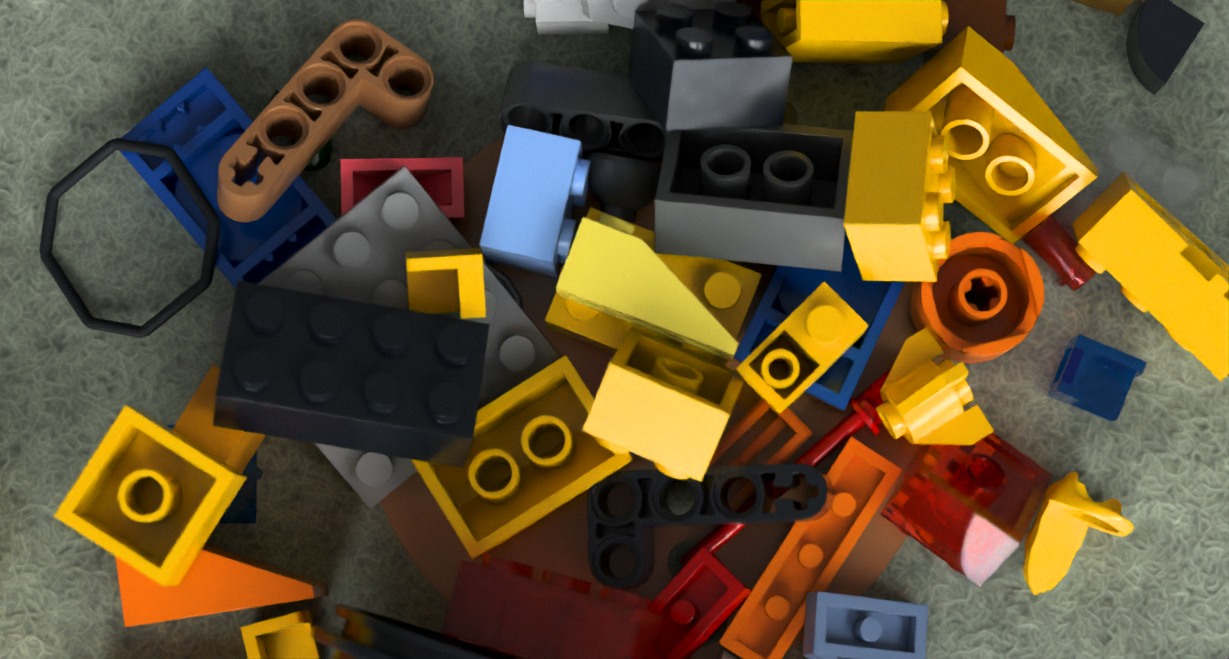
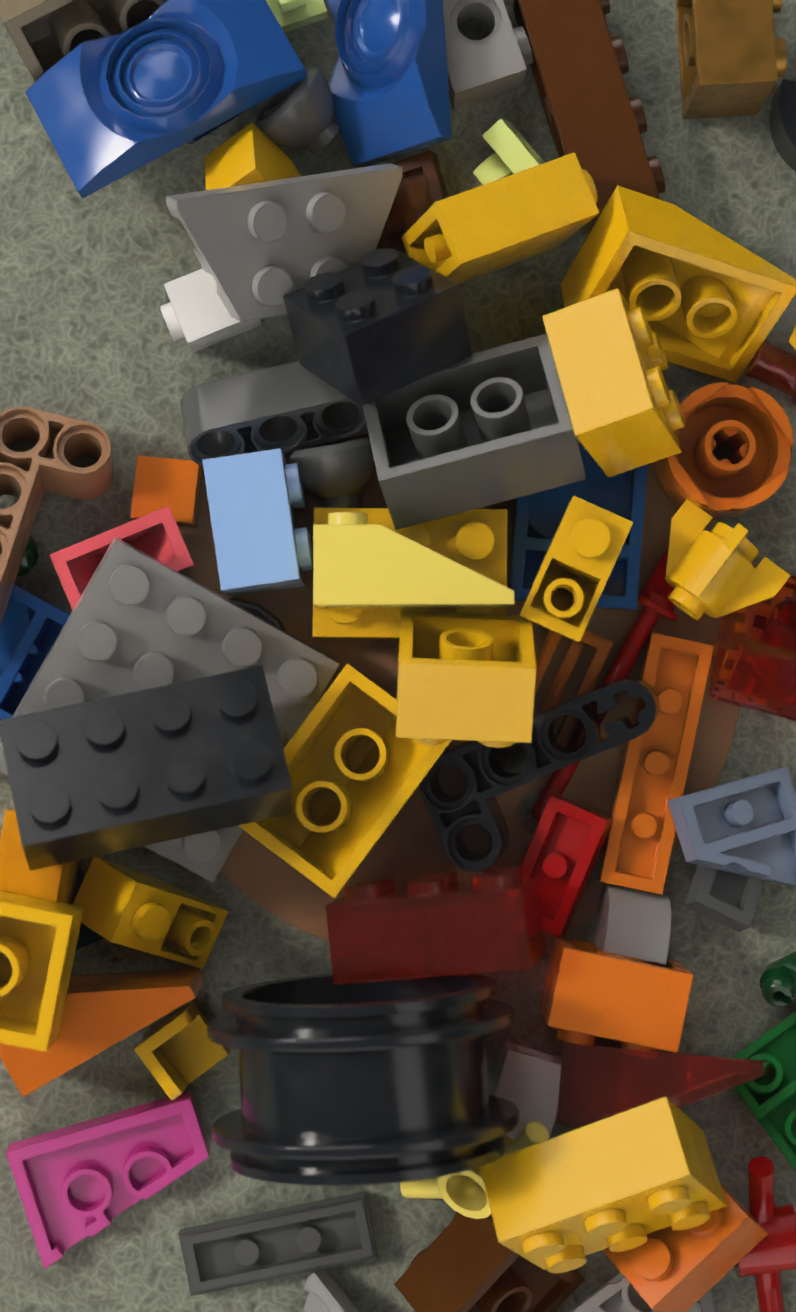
camera: 25 degrees left, 5 degrees up
(301, 514) = (148, 913): none -> yellow slope
(446, 282) = (203, 637): yellow panel -> none
(469, 138) = (167, 483): none -> orange tile

